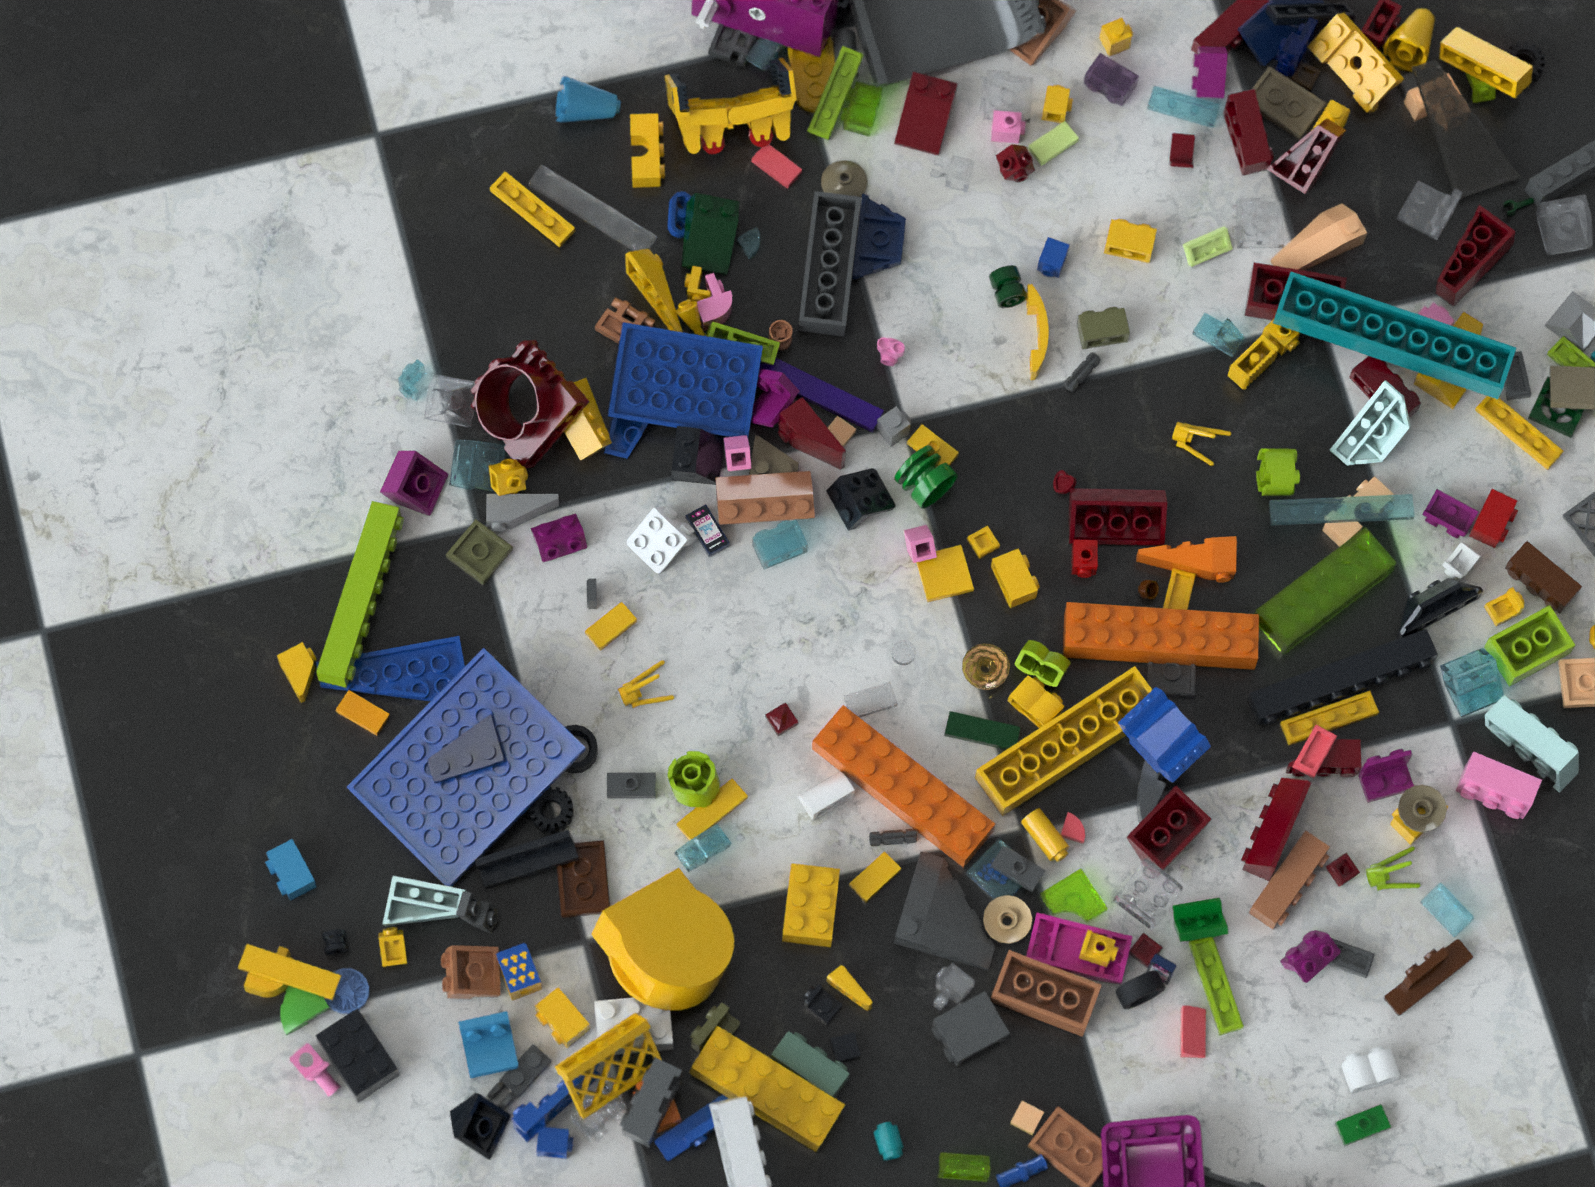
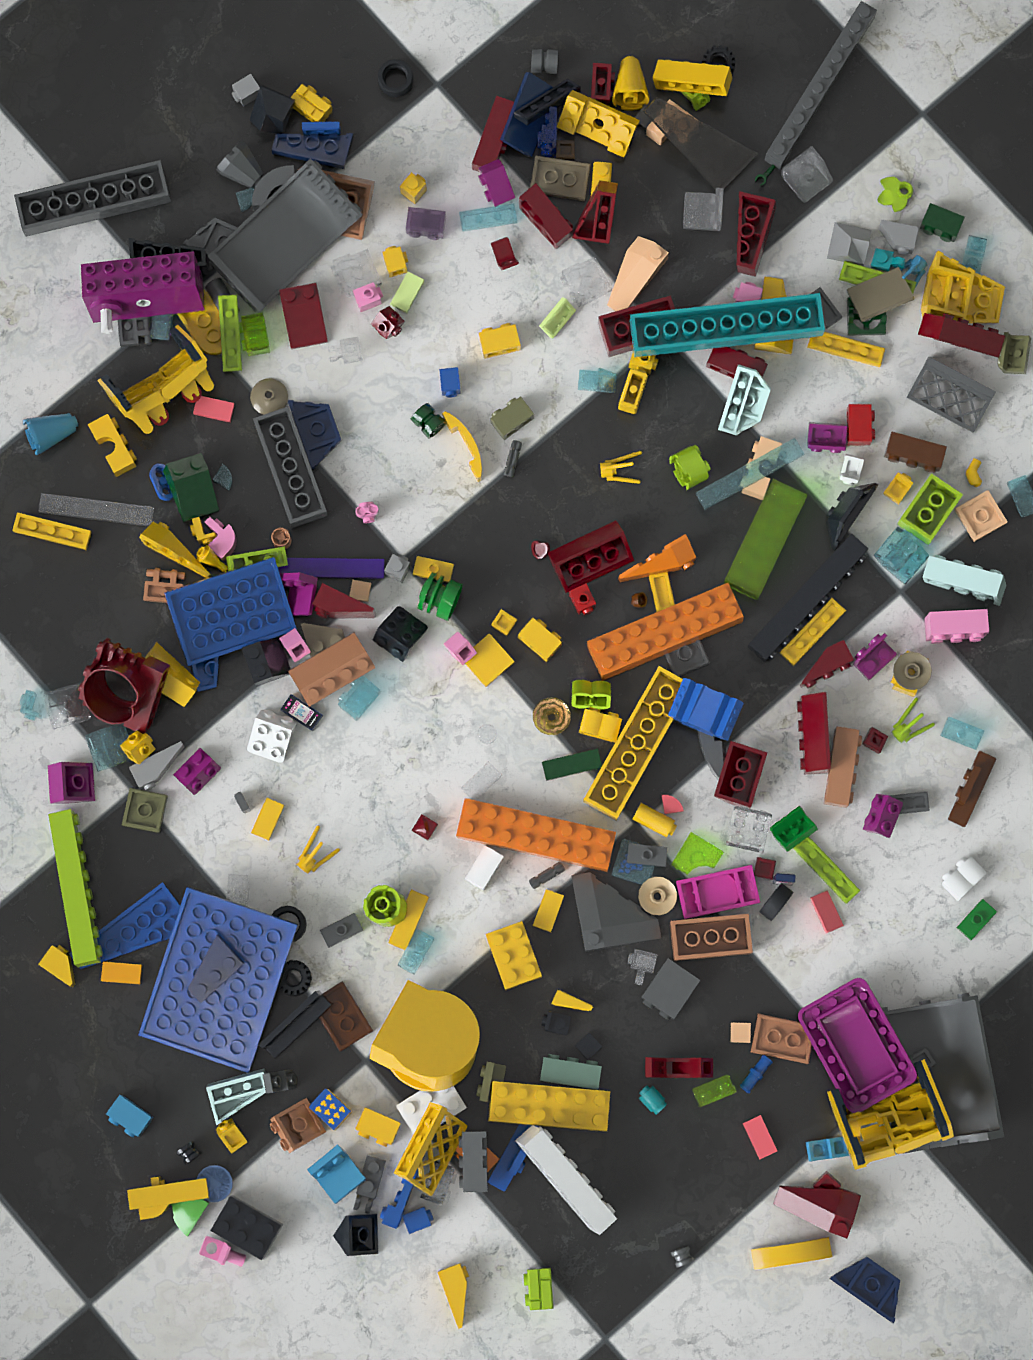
camera: 20 degrees left, 10 degrees up
(935, 1120) = (679, 1067): none -> dark red arch
(1091, 954) = (726, 891): yellow brick -> none
(1314, 751) = (816, 665): coral tile -> none

